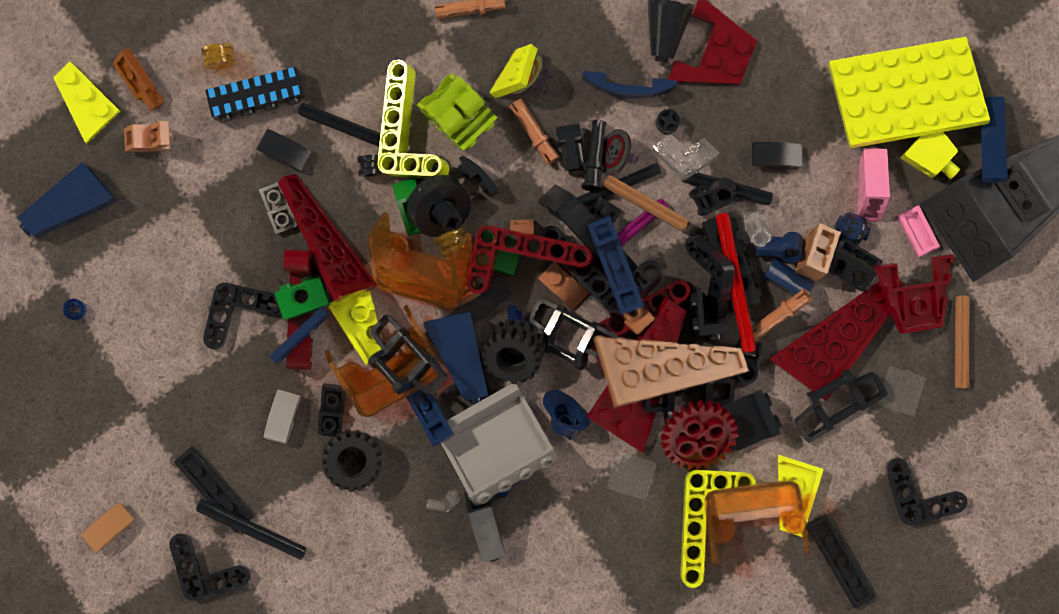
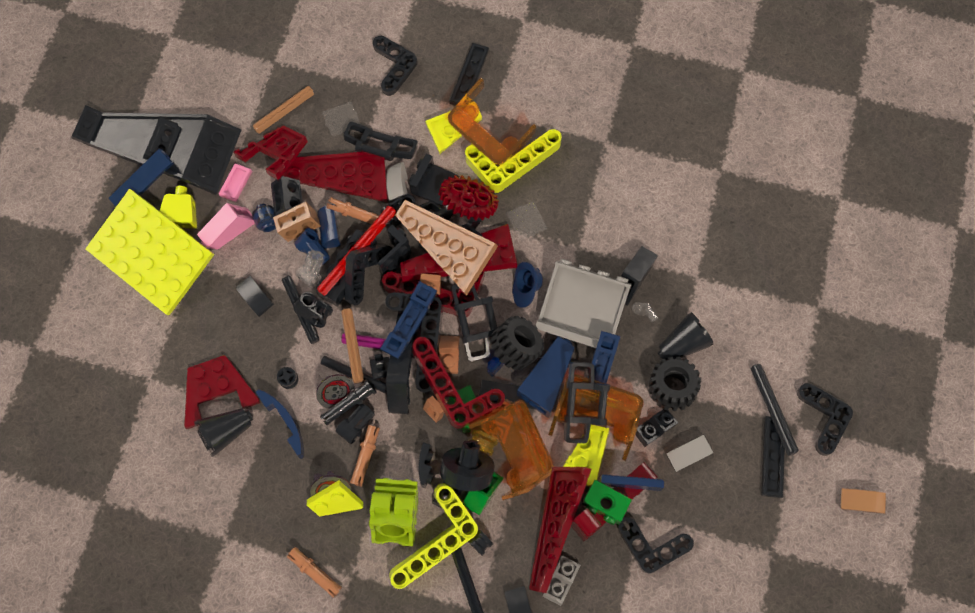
camera: 130 degrees left, 15 degrees down
(382, 509) = (685, 339): none -> black cone
(682, 160) = (305, 346): clear plate -> none
(786, 387) = (395, 181): none -> light grey slope

